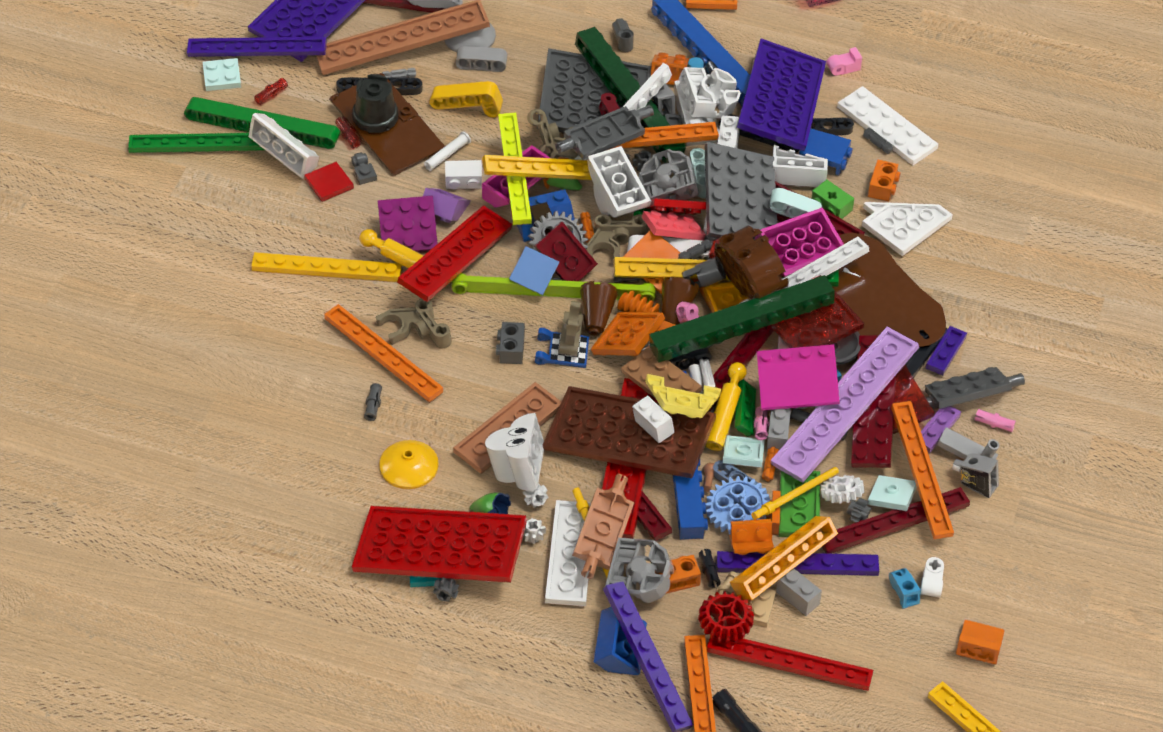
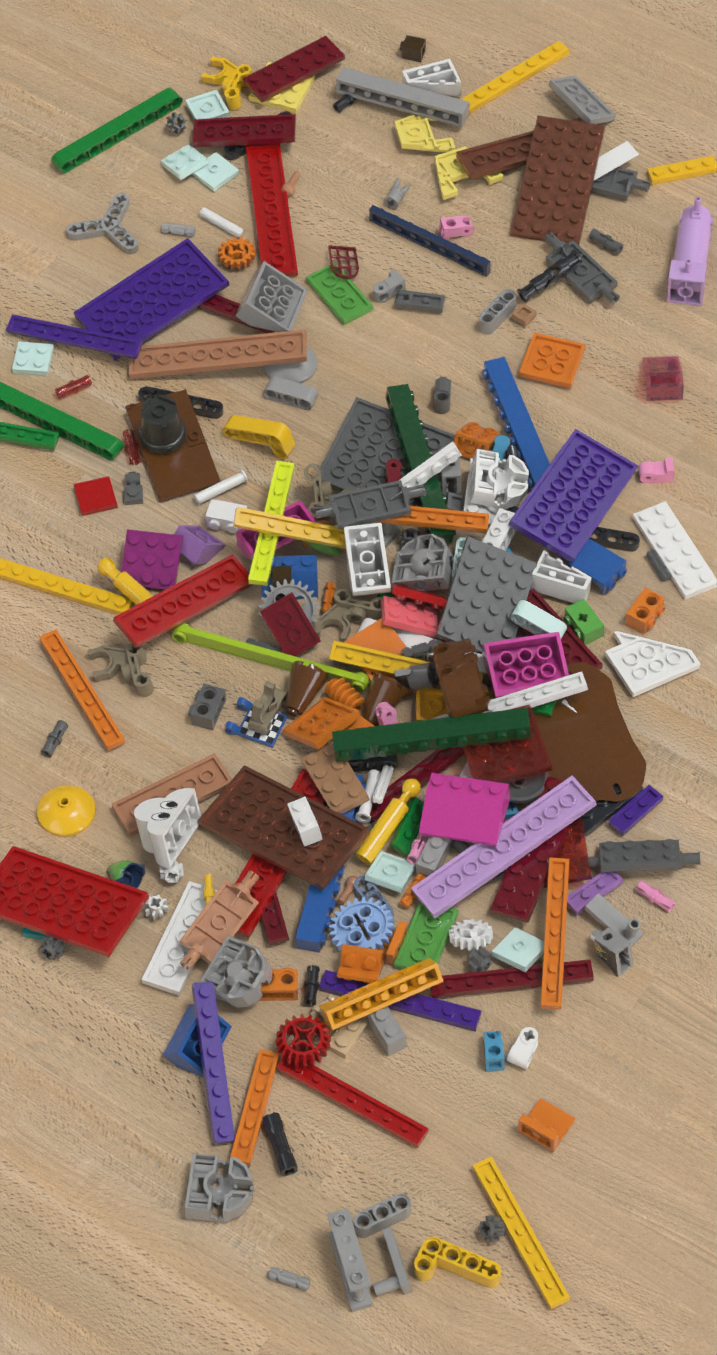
camera: 20 degrees right, 5 degrees up
(282, 145) = (60, 448): white slope -> none
(401, 73) = (205, 393): light grey axle -> none
(534, 270) = (253, 636): medium blue piece -> none
(682, 401) = (340, 810): light yellow wing -> none
(769, 507) = (386, 938): yellow bar -> none

